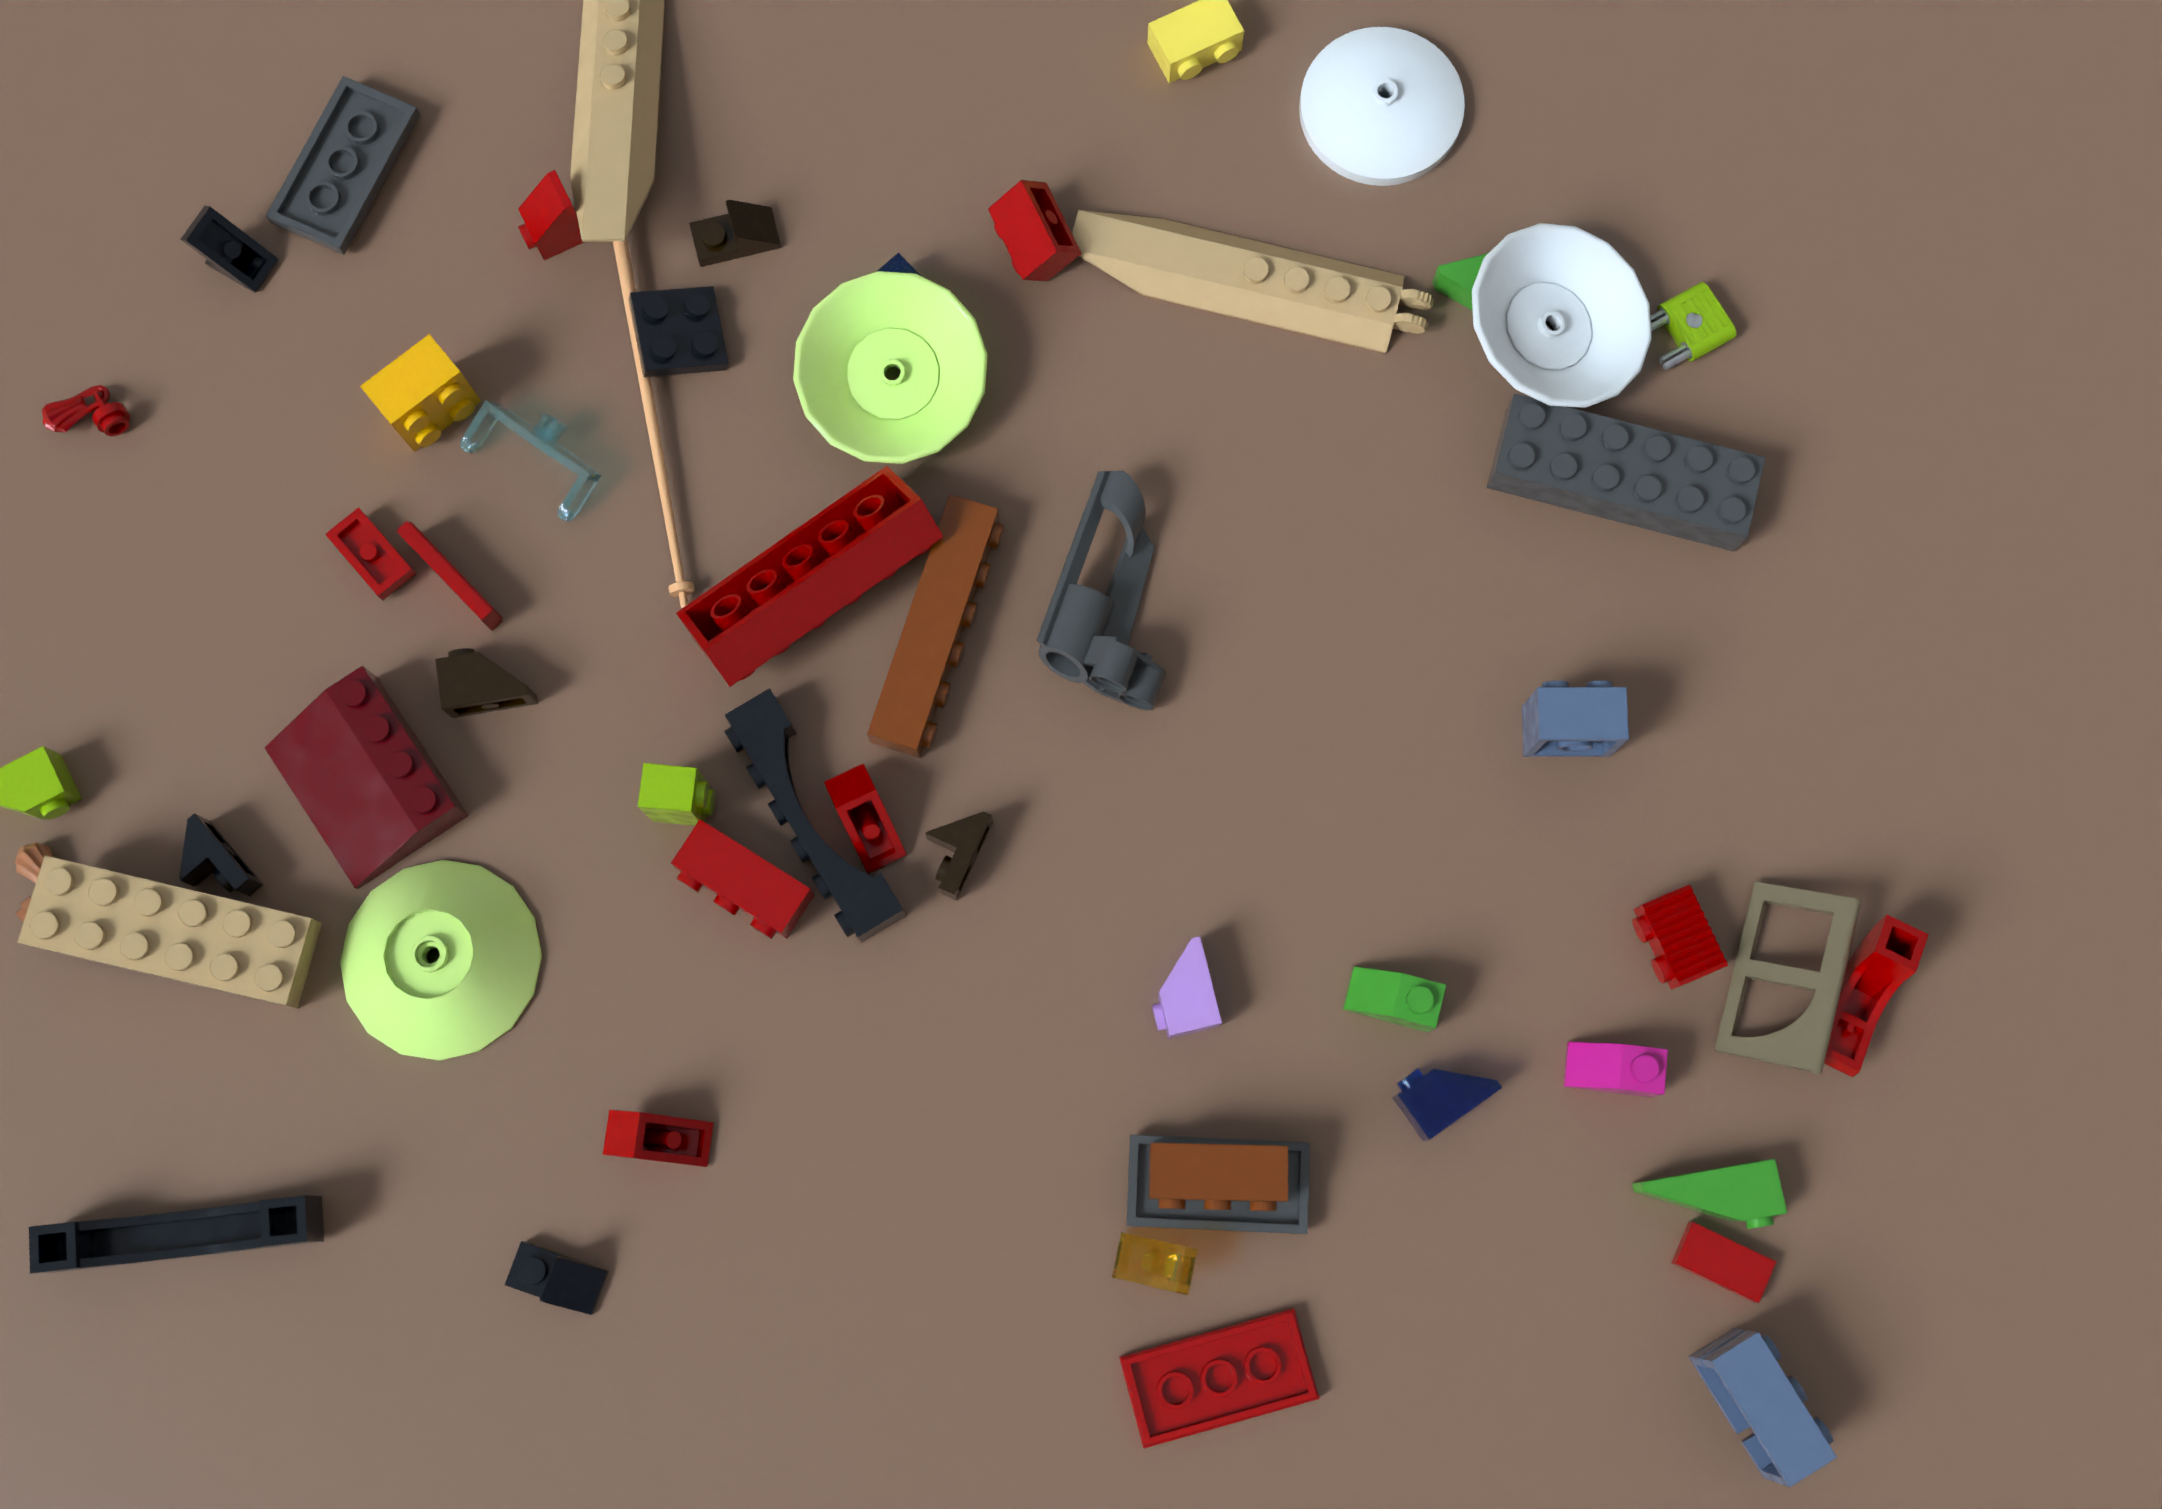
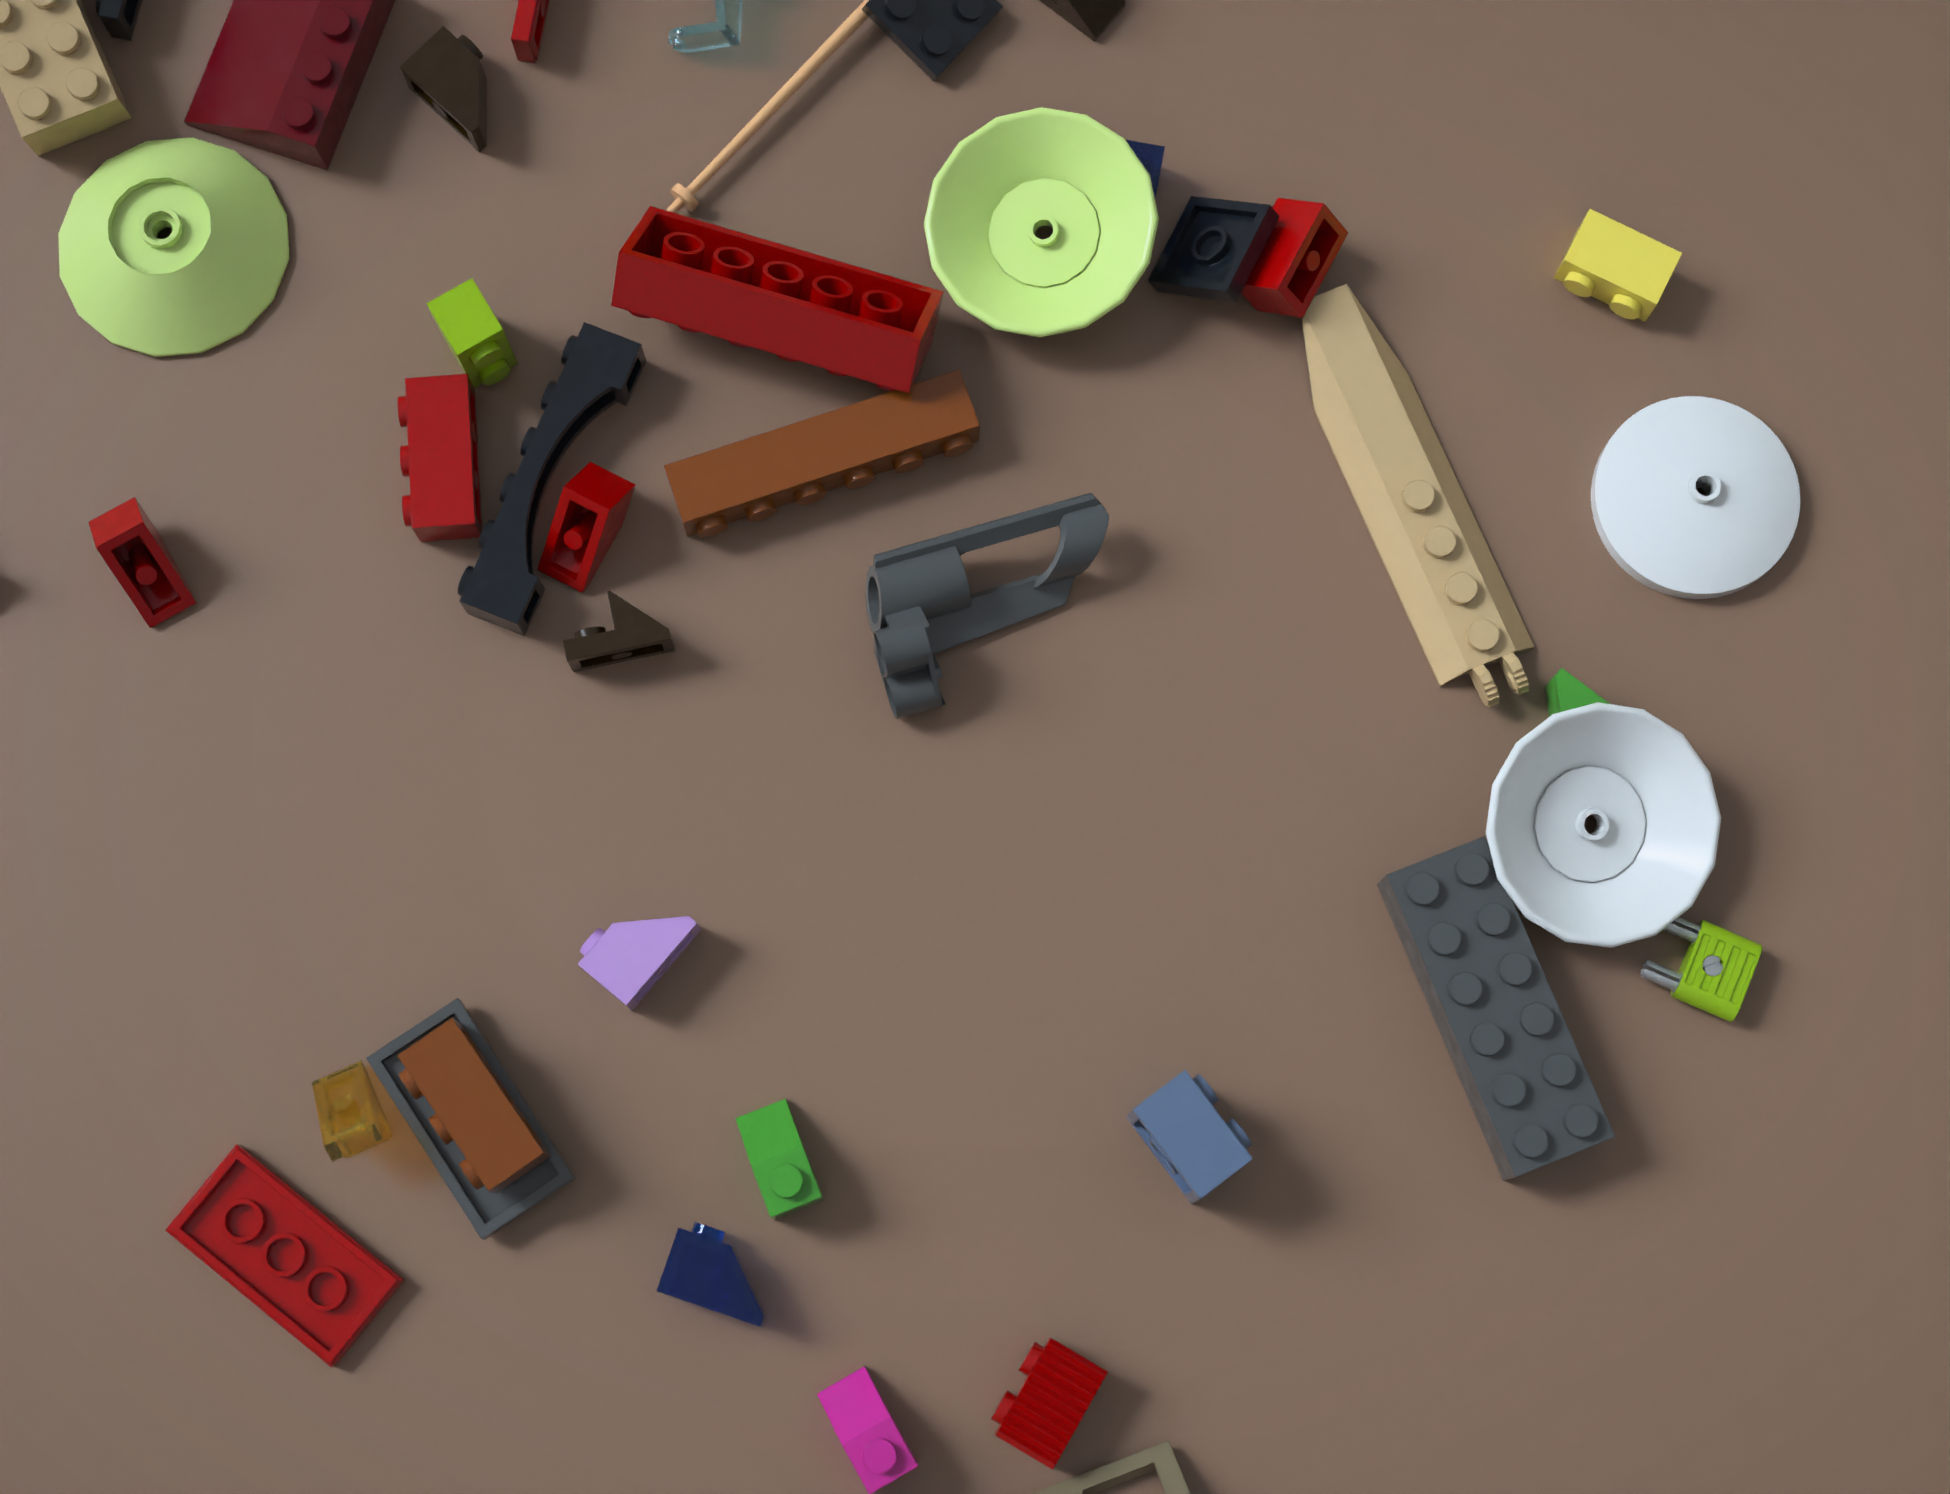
camera: 50 degrees right, 0 degrees up
(991, 273) = (1213, 248): none -> black plate

